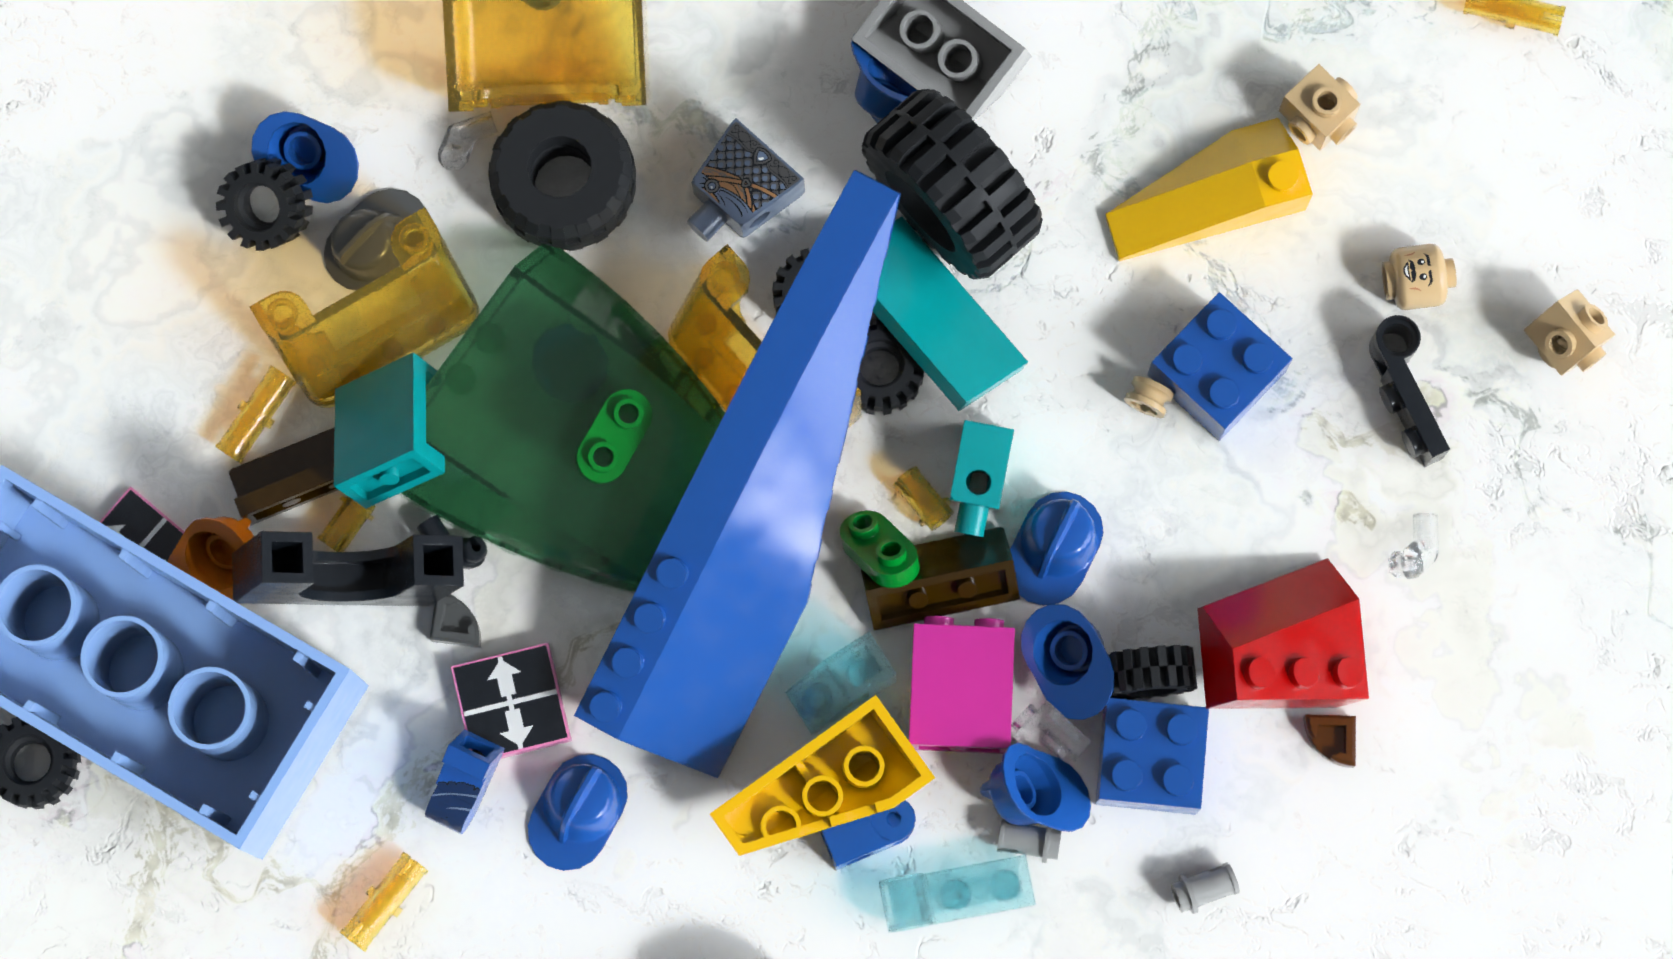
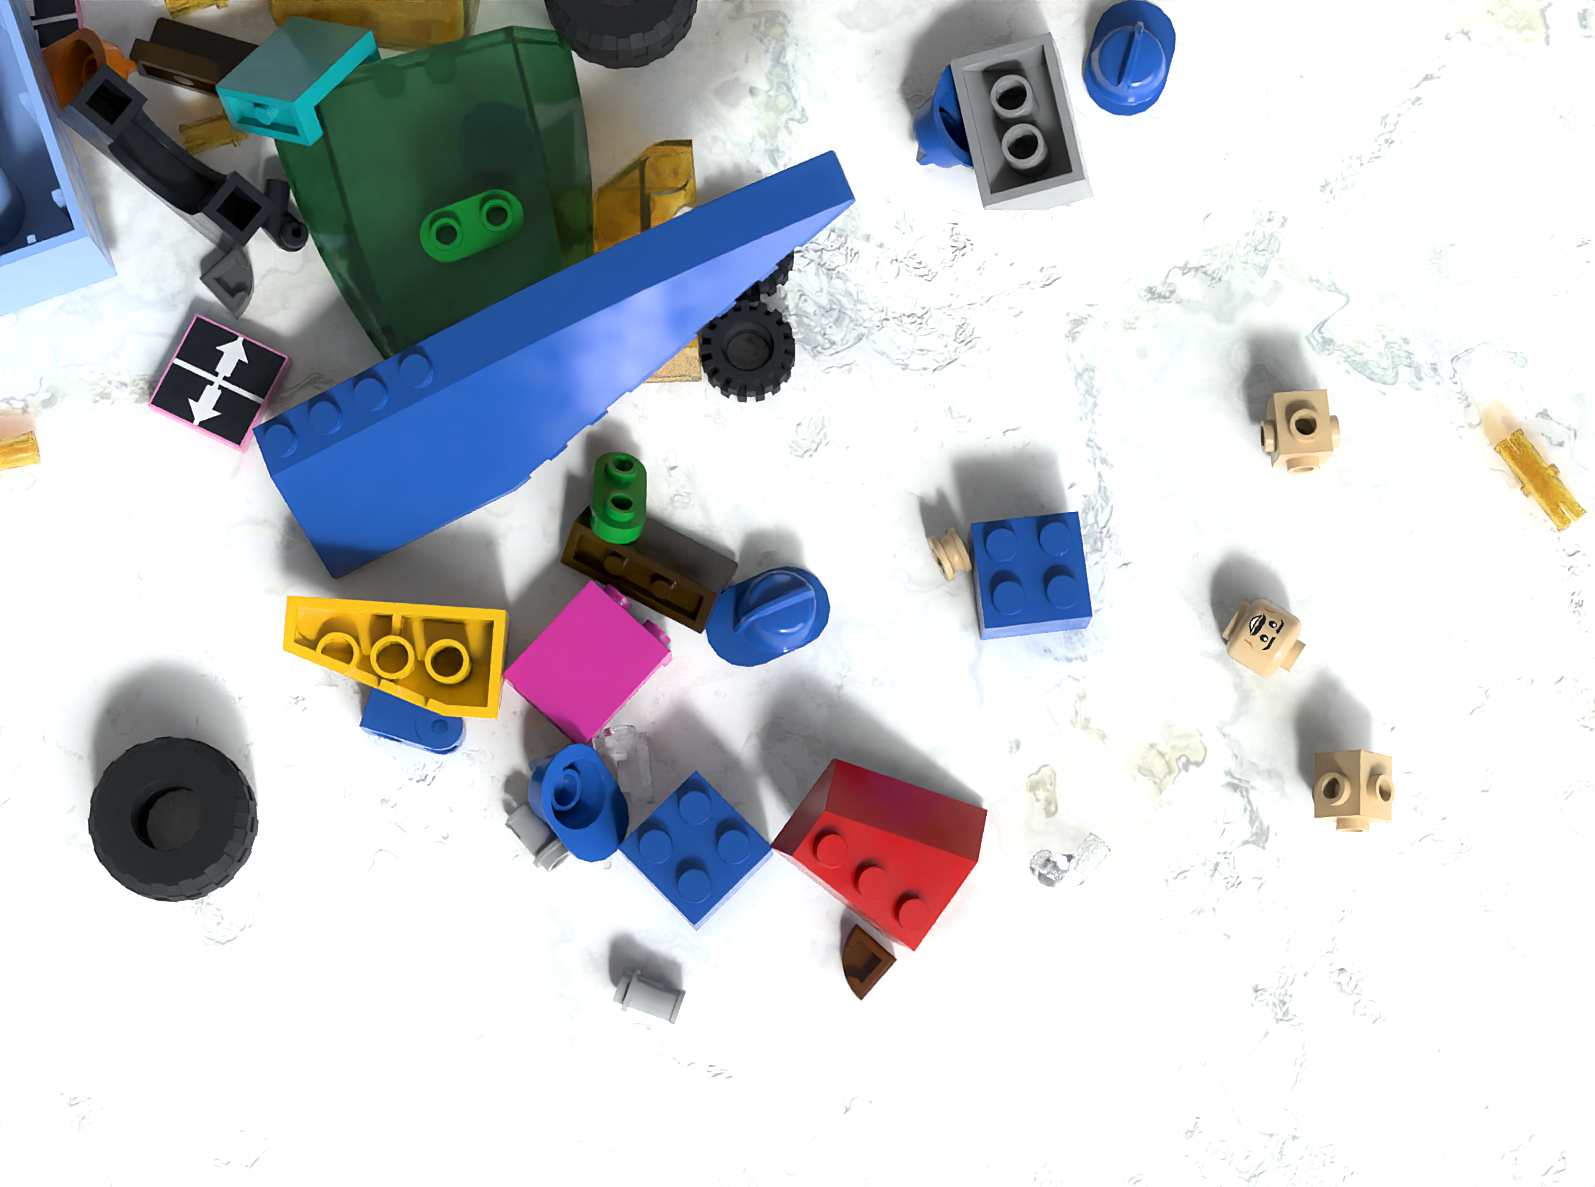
camera: 35 degrees right, 0 degrees up
(463, 781) = (124, 411): blue leg -> none
(577, 812) = (199, 514): blue piece -> none
(742, 185) = (761, 112): torso -> none
(841, 683) = (495, 581): clear light blue slope -> none
(923, 499) = (692, 487): clear yellow pin -> none
(941, 322) = (826, 343): teal tile -> none
(953, 183) = (925, 240): black tyre -> none
(956, 893) = (440, 831): clear light blue plate -> none
(982, 450) = (774, 495): teal torso -> none
(1068, 660) = (693, 714): blue piece -> none
(1153, 671) = (751, 779): black tyre -> none
(1224, 187) = (1160, 432): yellow wedge -> none
(1402, 393) = (1165, 722): black plate -> none

